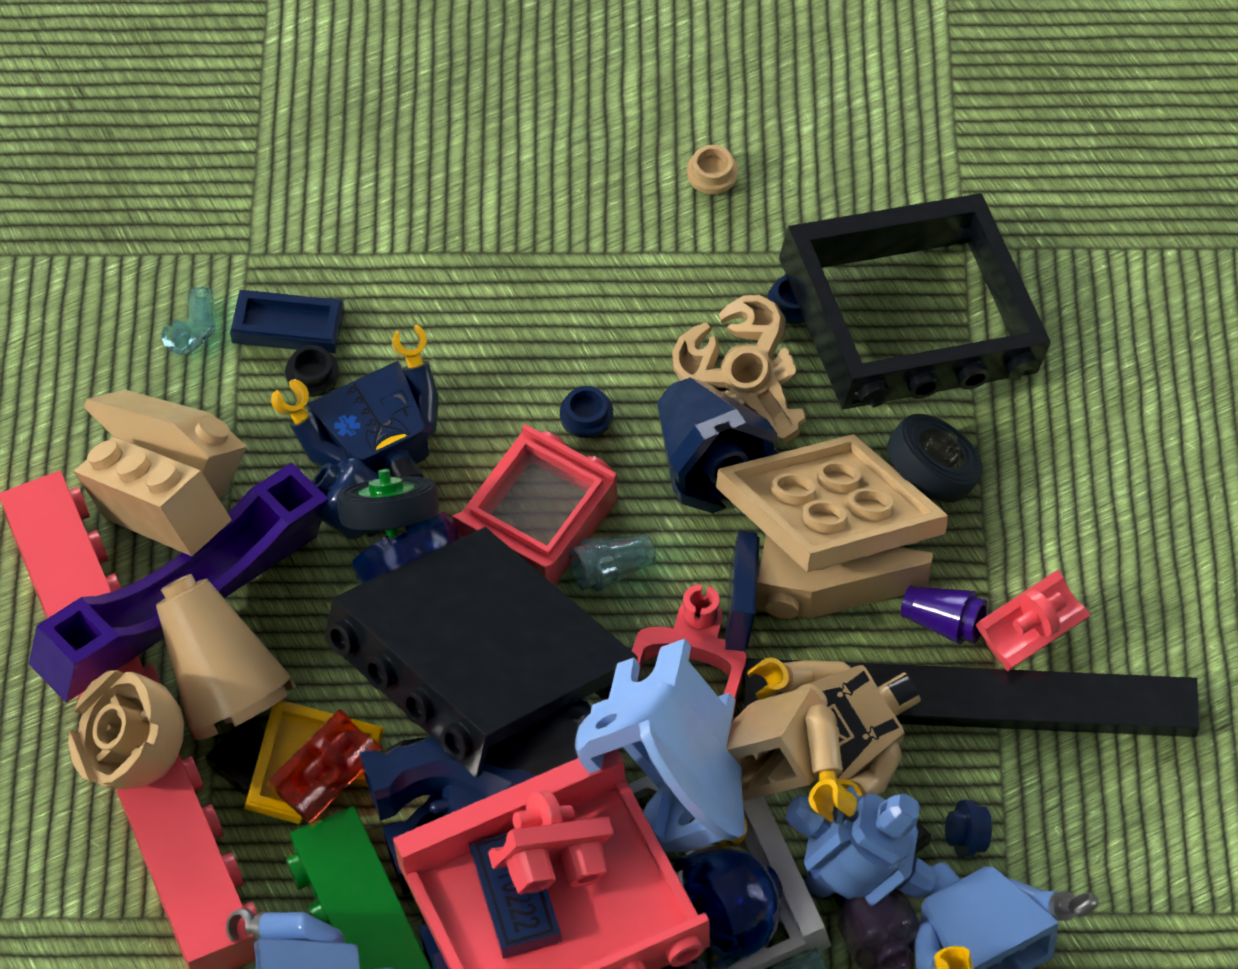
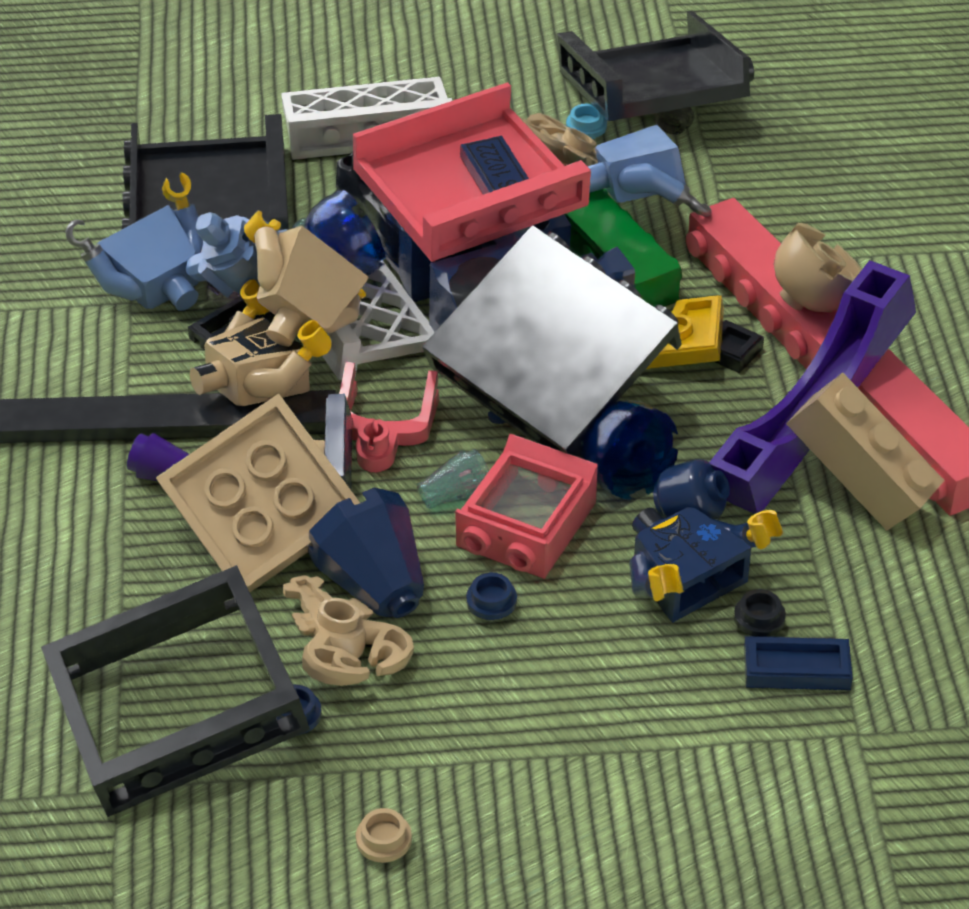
camera: 175 degrees right, 15 degrees down
(173, 432) = (877, 533): tan slope -> none
(196, 329) = (884, 647): clear light blue arm -> none
(216, 658) = (758, 341): tan cone -> none
(322, 766) = (669, 285): clear red hips -> none
(387, 503) = (652, 433): black wheel -> none
(551, 834) = (471, 166): coral hips -> none
(679, 740) = (380, 251): light blue piece -> none
(934, 457) = (162, 557): black wheel -> none
(968, 828) = (158, 326): dark blue plate -> none
(1031, 620) = (87, 440): coral hips -> none

